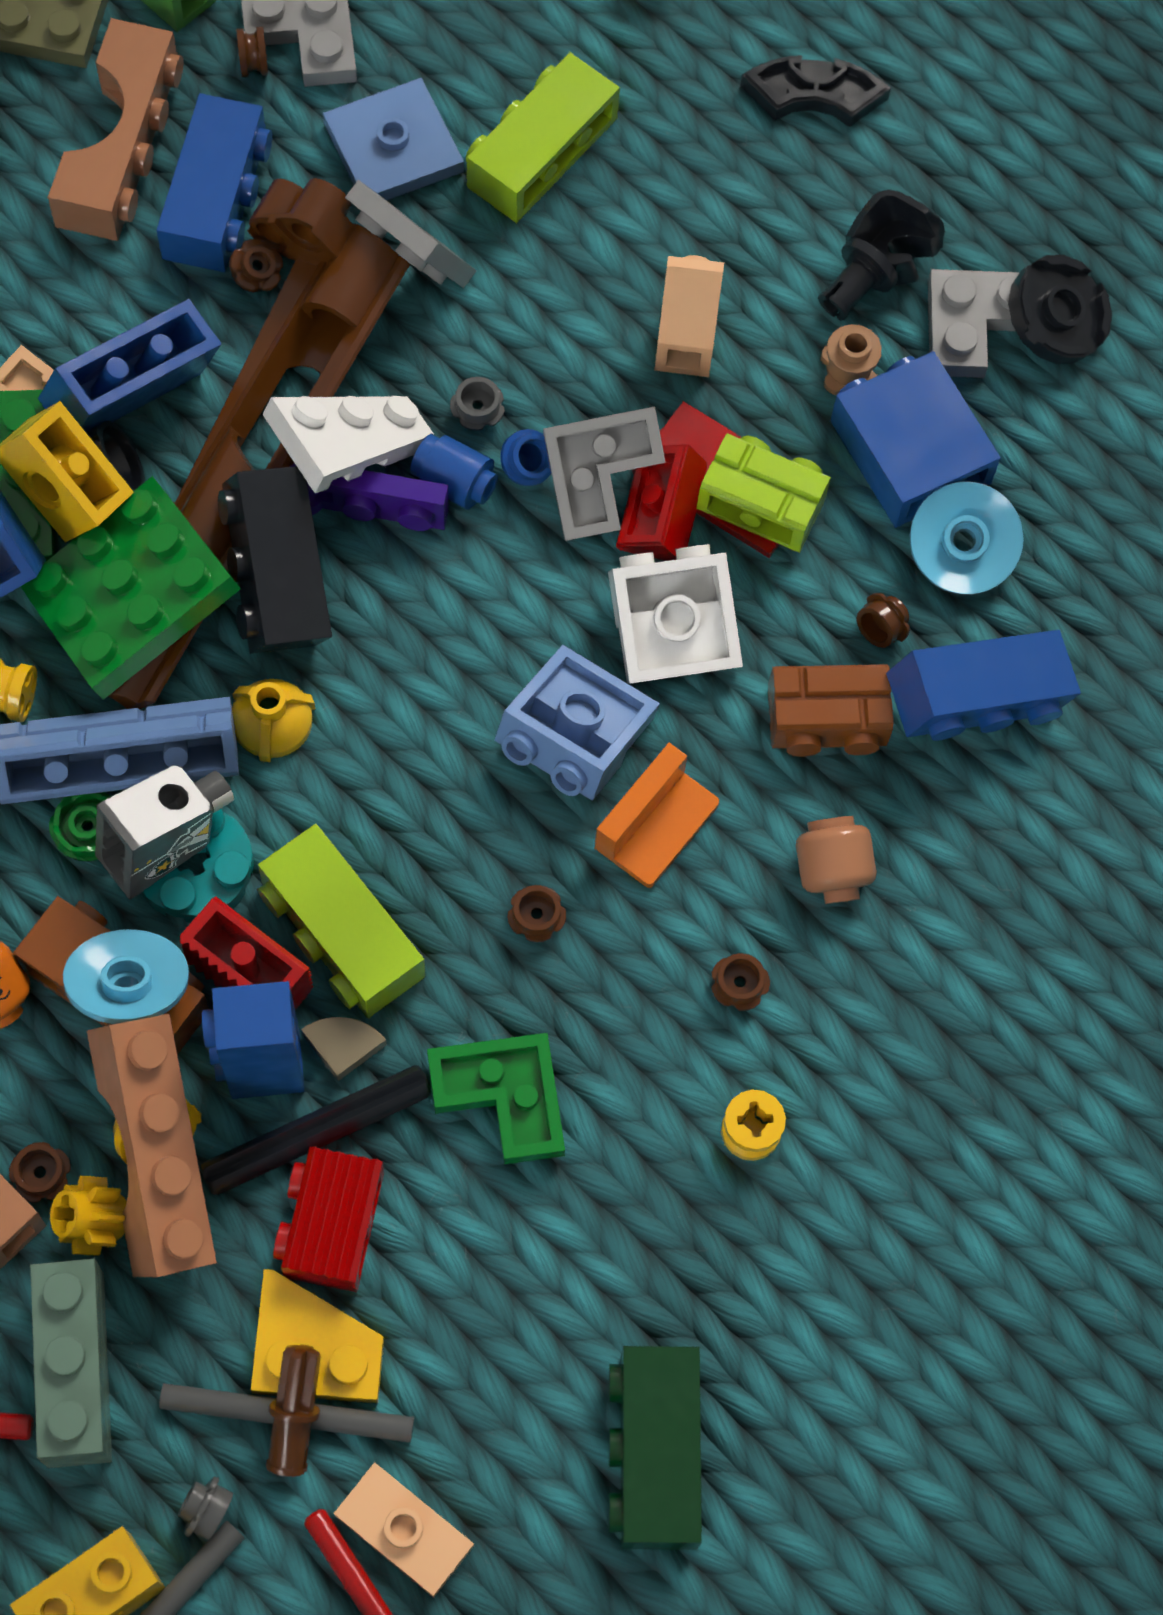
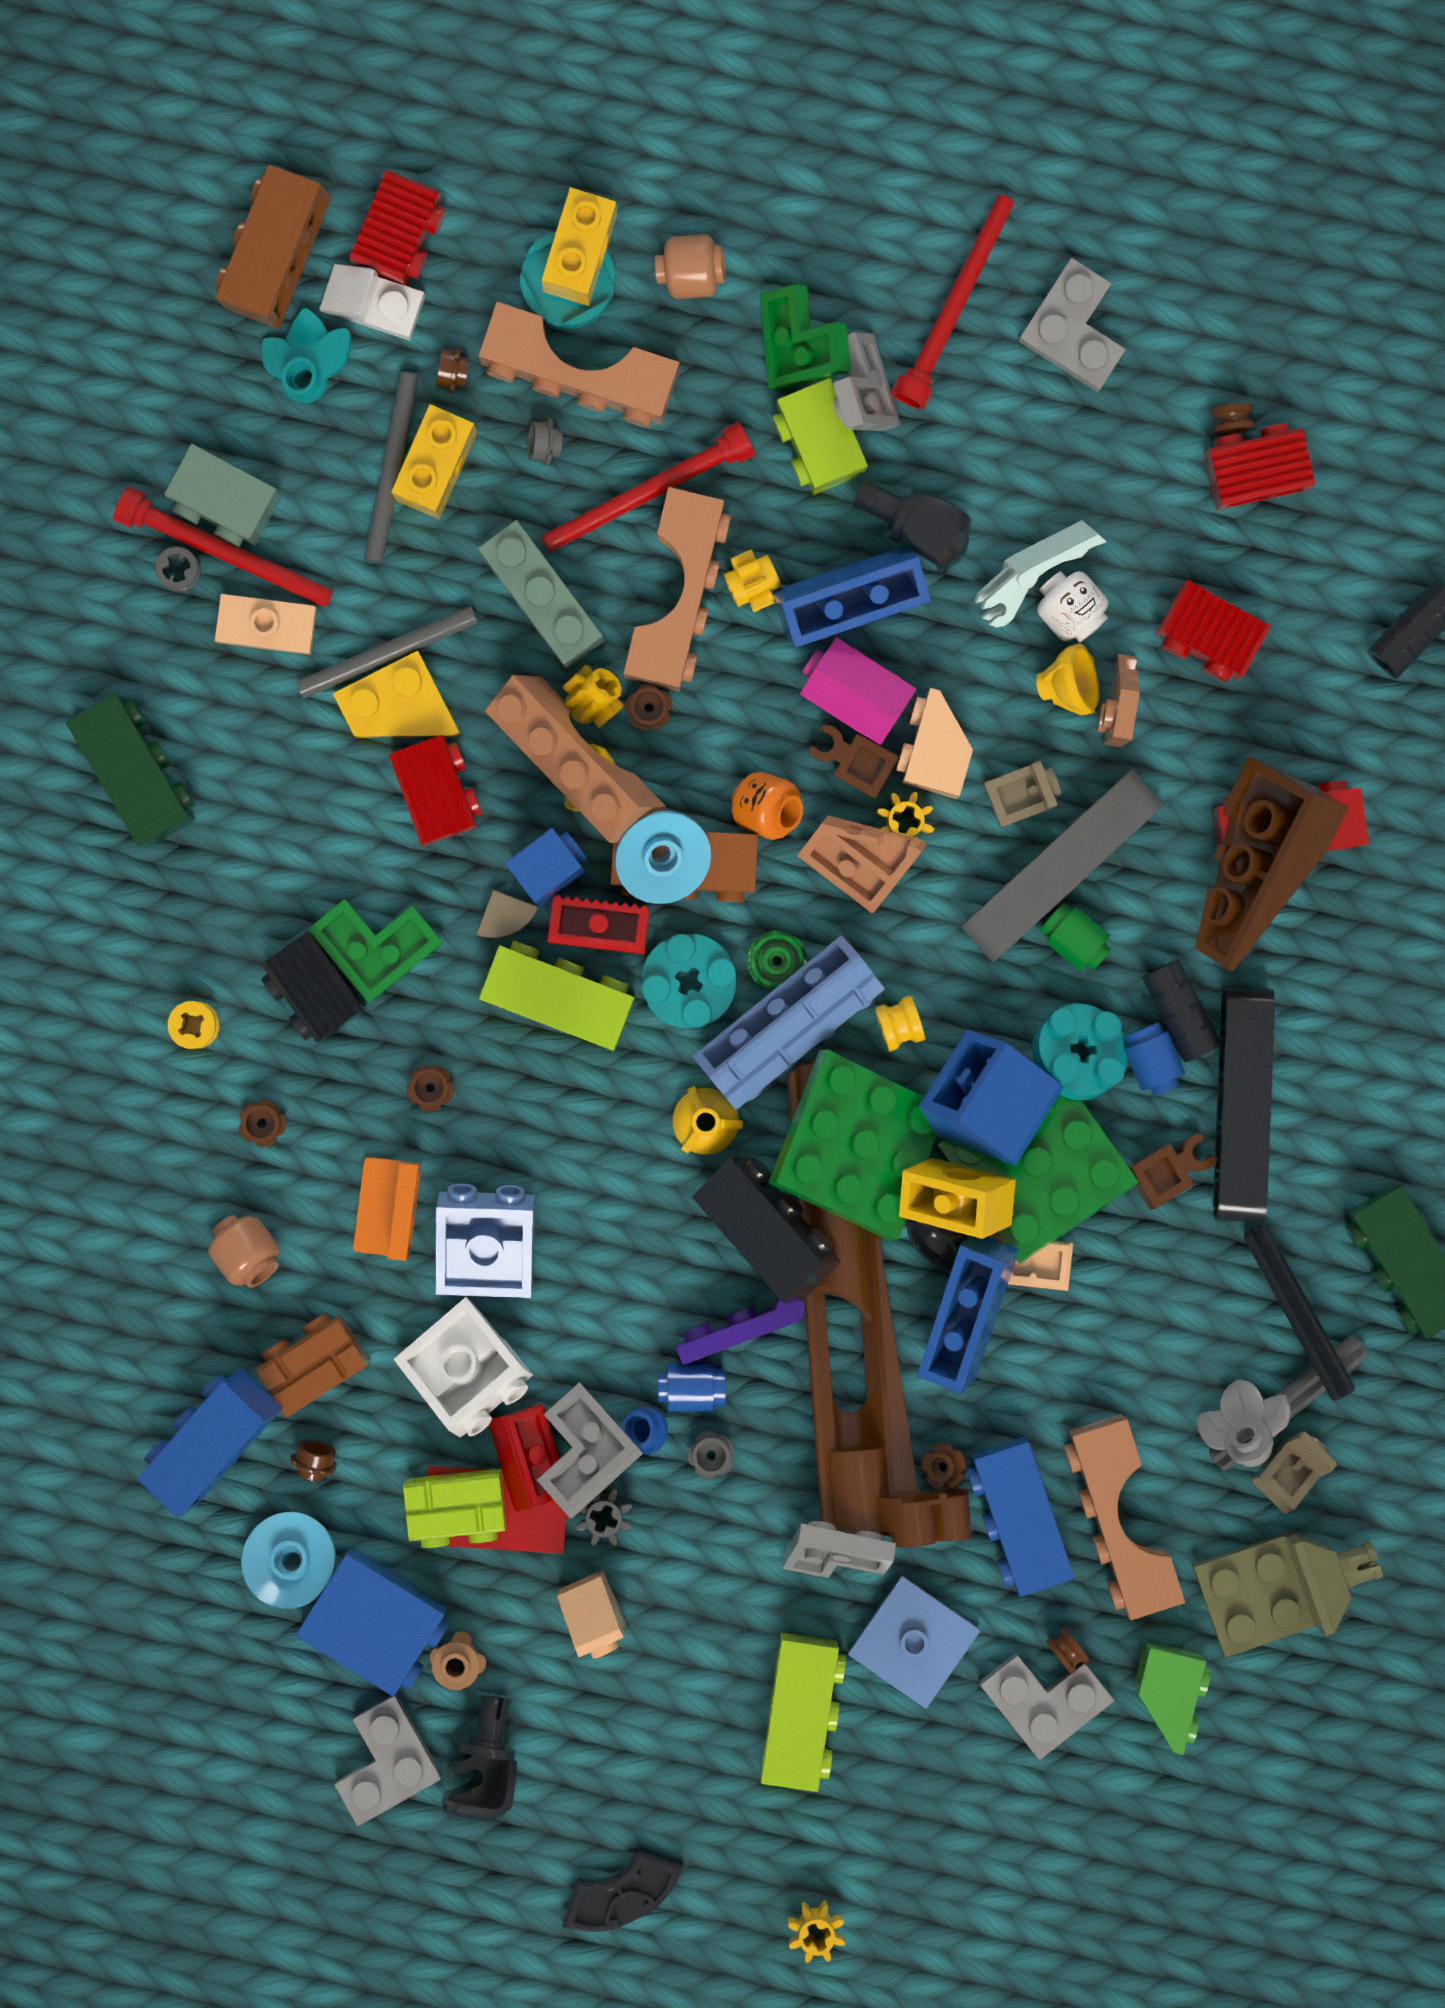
camera: 155 degrees right, 20 degrees up
(157, 826) = (718, 963): dark grey torso -> none
(204, 1508) = (398, 560): dark grey plate -> none
(294, 1411) = (377, 650): reddish brown axle -> none
(315, 1130) = (485, 846): black axle -> none
(345, 433) = (777, 1356): white wing -> none
(598, 1085) = (312, 987): none -> black brick
(618, 395) = (610, 1527): none -> dark grey gear
(1059, 309) = (323, 1801): black tile -> none

